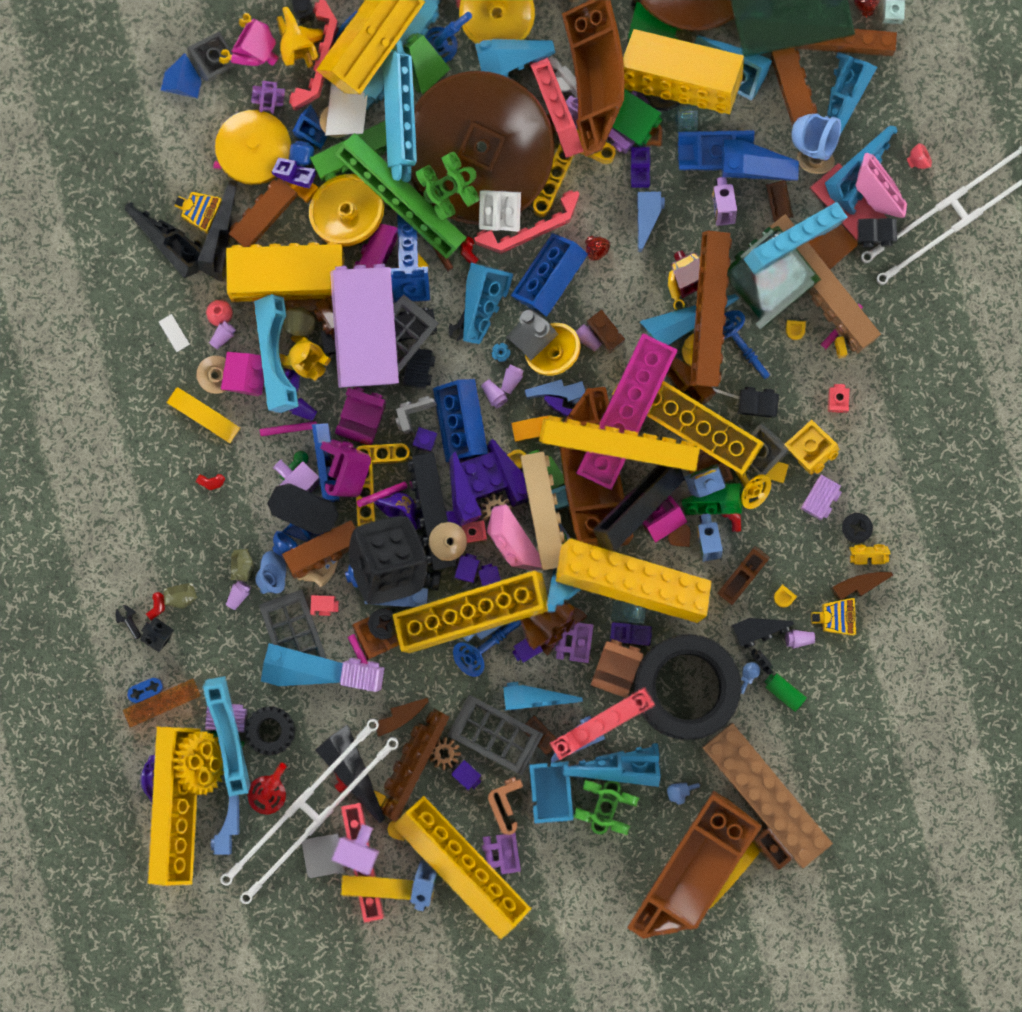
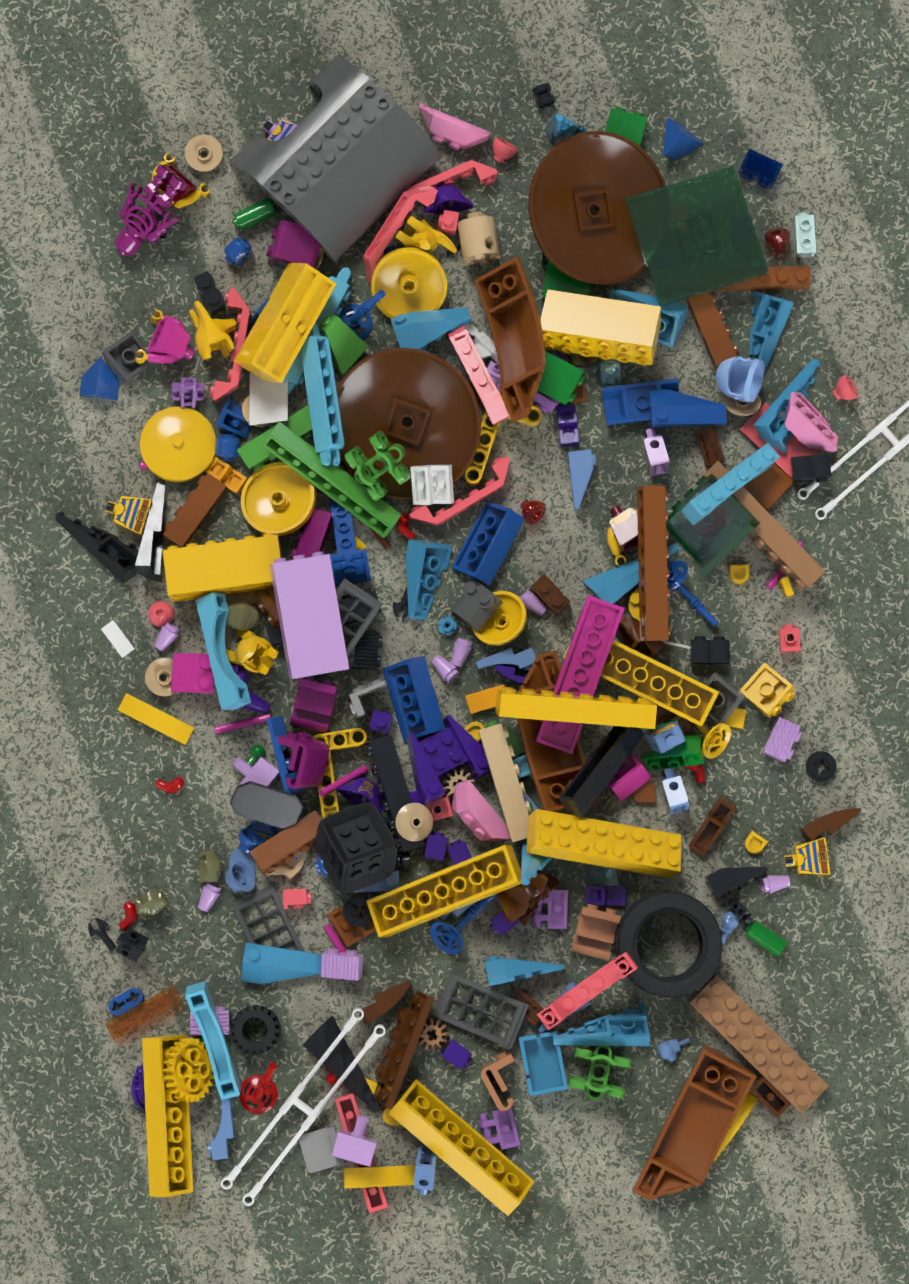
camera: 10 degrees left, 0 degrees up
(290, 172) = (224, 468): dark purple slope -> none
(860, 553) = (844, 790): yellow hinge -> none

